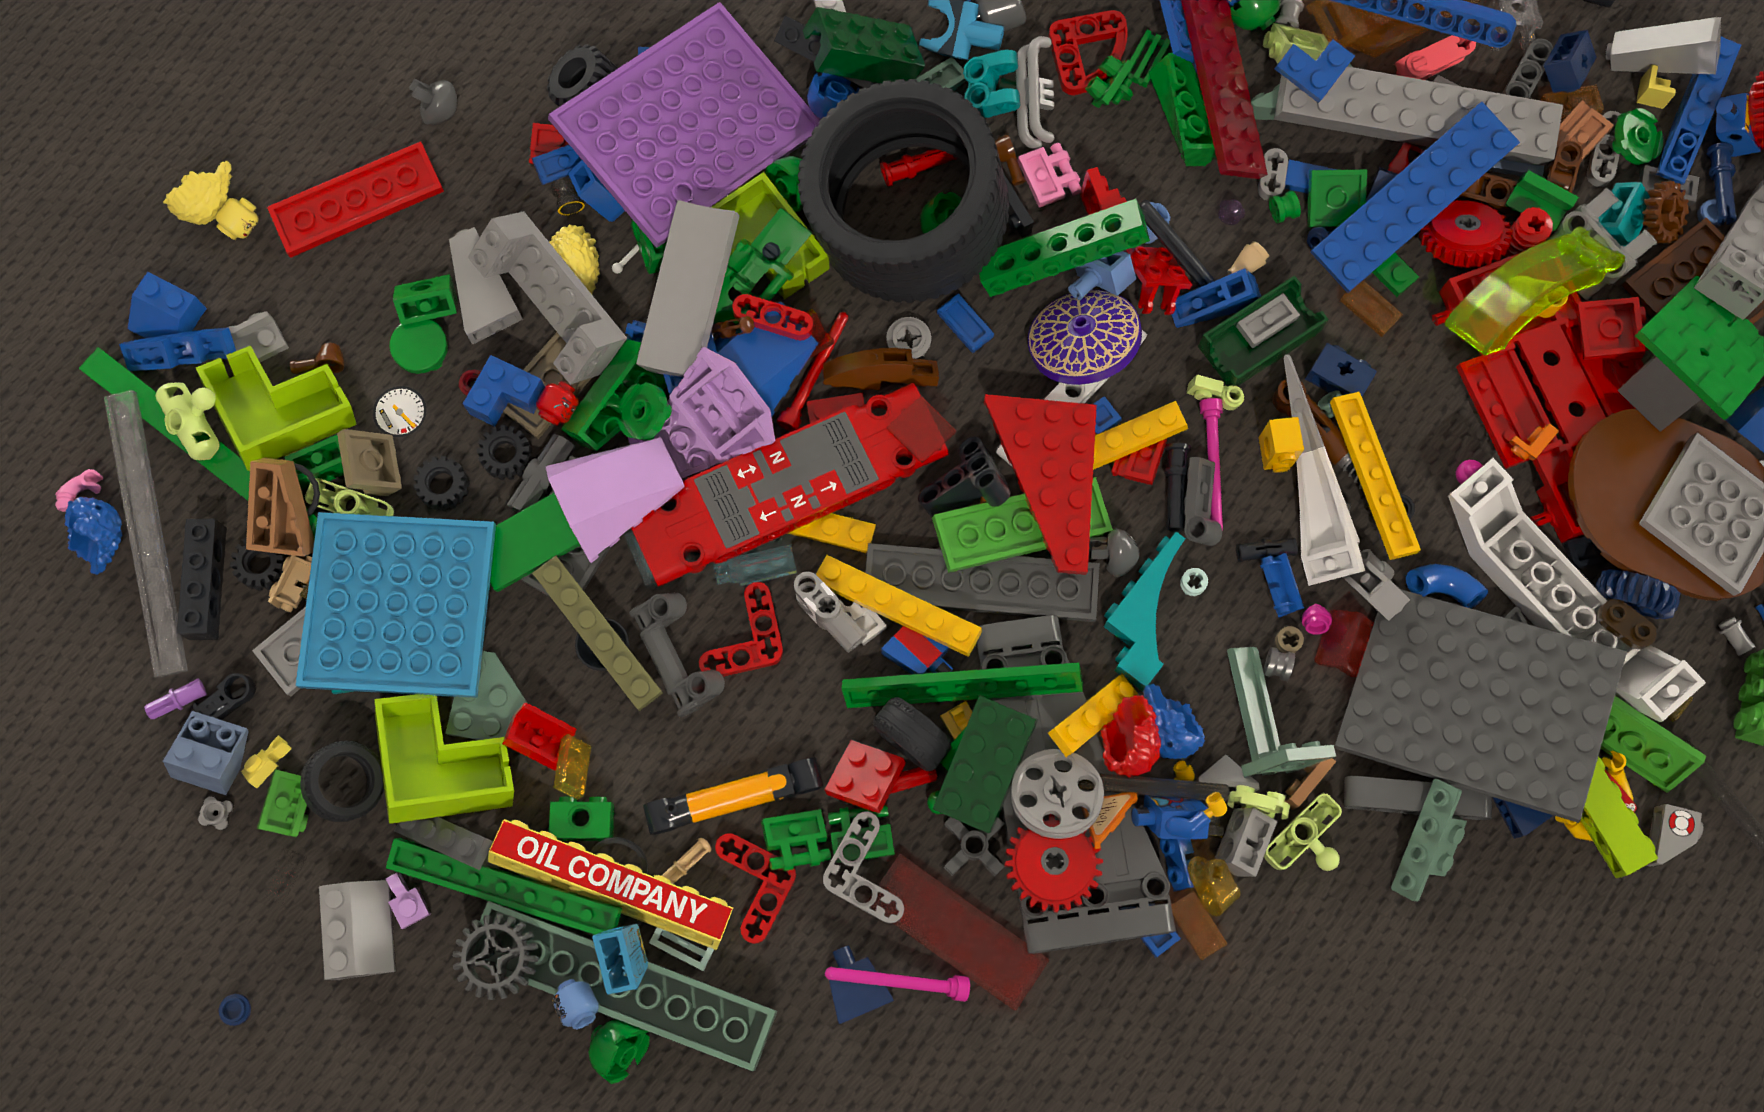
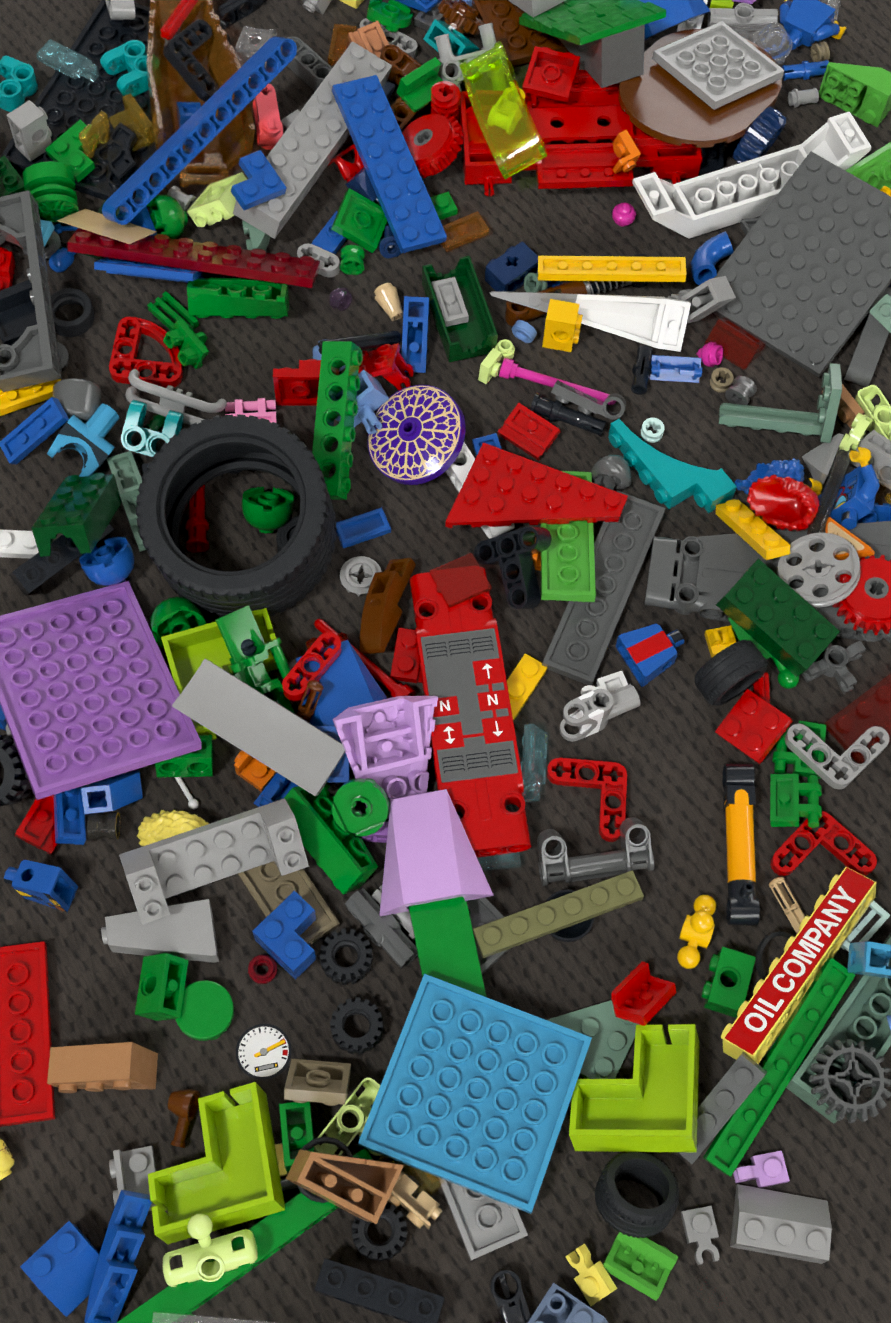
camera: 75 degrees left, 10 degrees down
(336, 856) = (701, 1228): none -> light grey plate
(339, 278) = (102, 1067): none -> medium nougat wedge
(491, 154) = (42, 884): none -> blue torso
(557, 403) = (319, 888): red head -> none
(572, 767) = (679, 972): clear yellow plate -> none
(626, 776) = (697, 931): none -> yellow piece
(899, 606) = (611, 650): yellow plate -> none
(964, 685) = (698, 622): green plate -> none
(1138, 434) = (514, 419): yellow plate -> none
(1264, 410) = (524, 331): none -> medium blue tile
(1570, 61) = (311, 30): dark blue brick -> none
(1627, 625) = (788, 147): dark brown plate -> none

